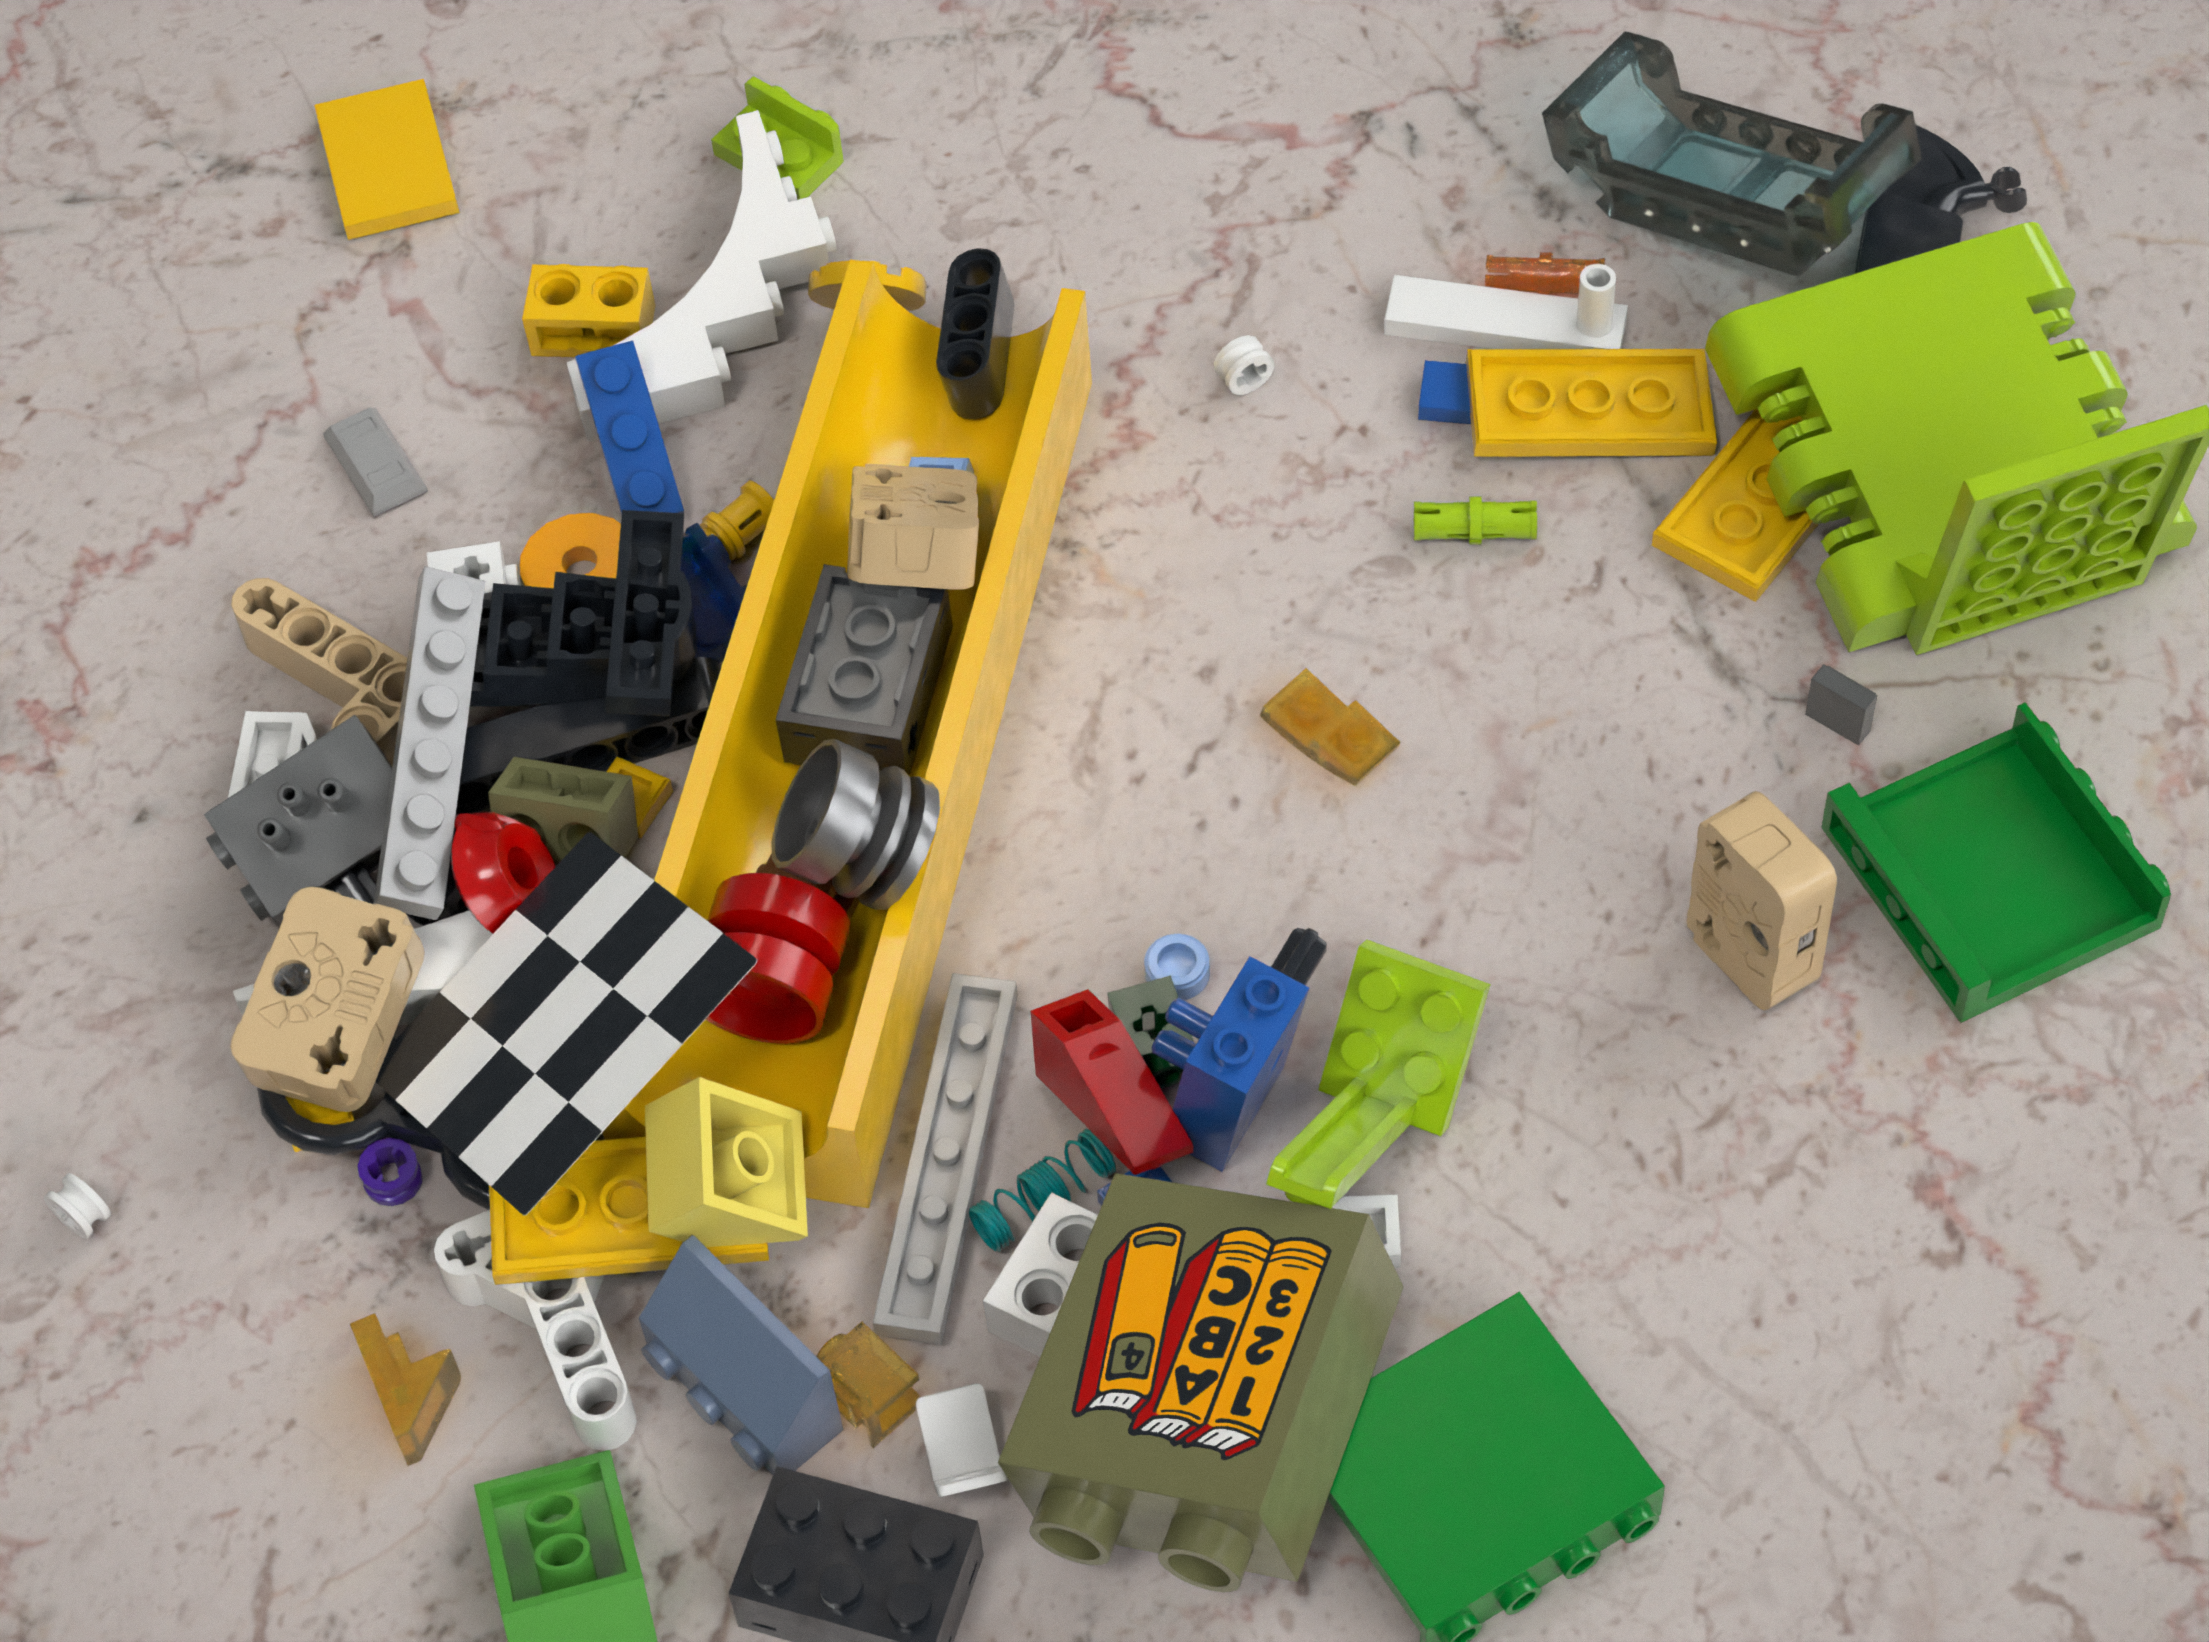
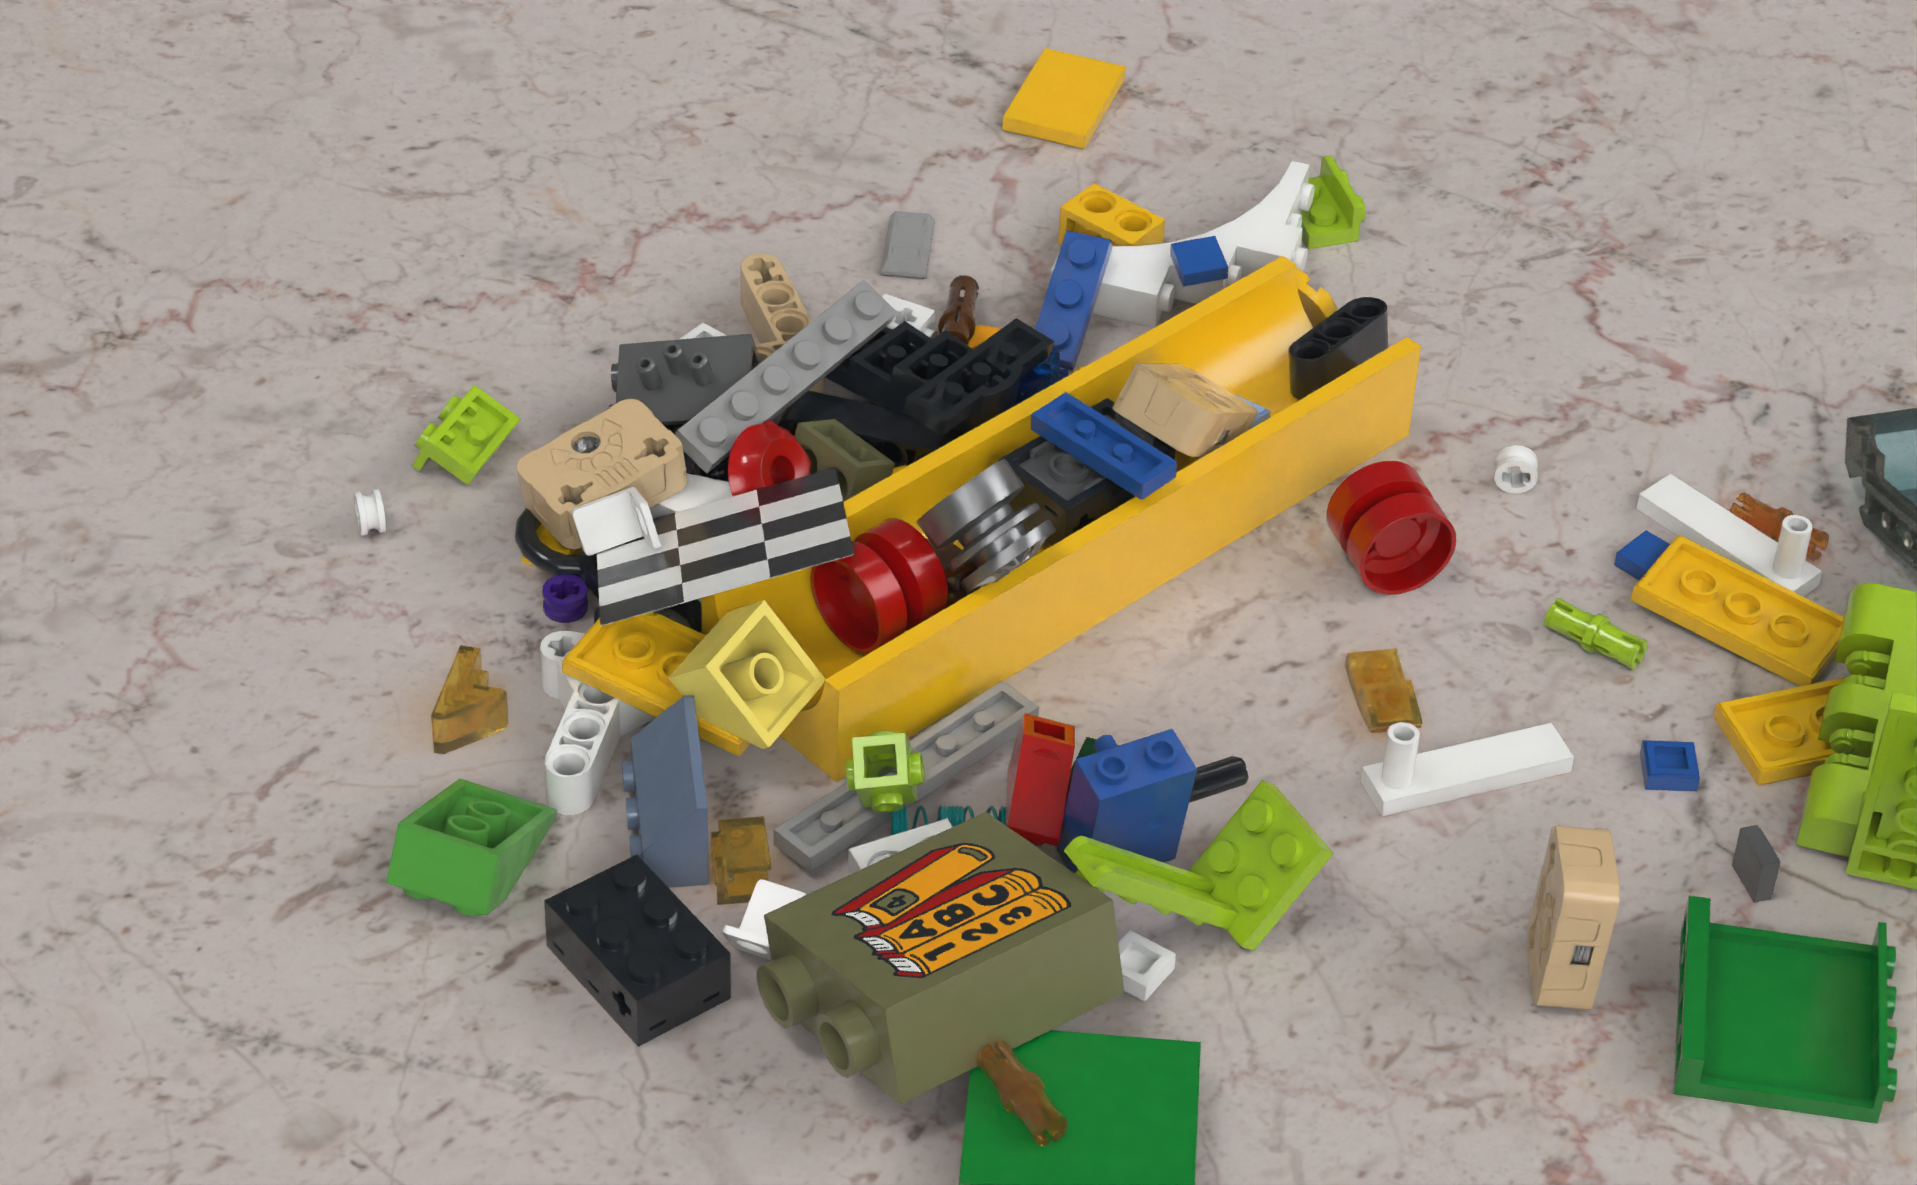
camera: 30 degrees right, 15 degrees down
(100, 1032) = (467, 436): none -> lime bracket
(401, 1053) = (614, 521): none -> white bracket
(531, 541) = (966, 305): none -> reddish brown pin
(738, 306) = (1199, 261): none -> blue tile
(883, 636) = (1103, 445): none -> blue plate
(979, 1185) = (879, 755): none -> lime brick
(1197, 526) = (1391, 527): none -> red wheel
(1411, 1483) = (1022, 1093): none -> clear orange pin
(1479, 770) = (1461, 770): none -> white piece
(1663, 635) = (1669, 765): none -> blue tile

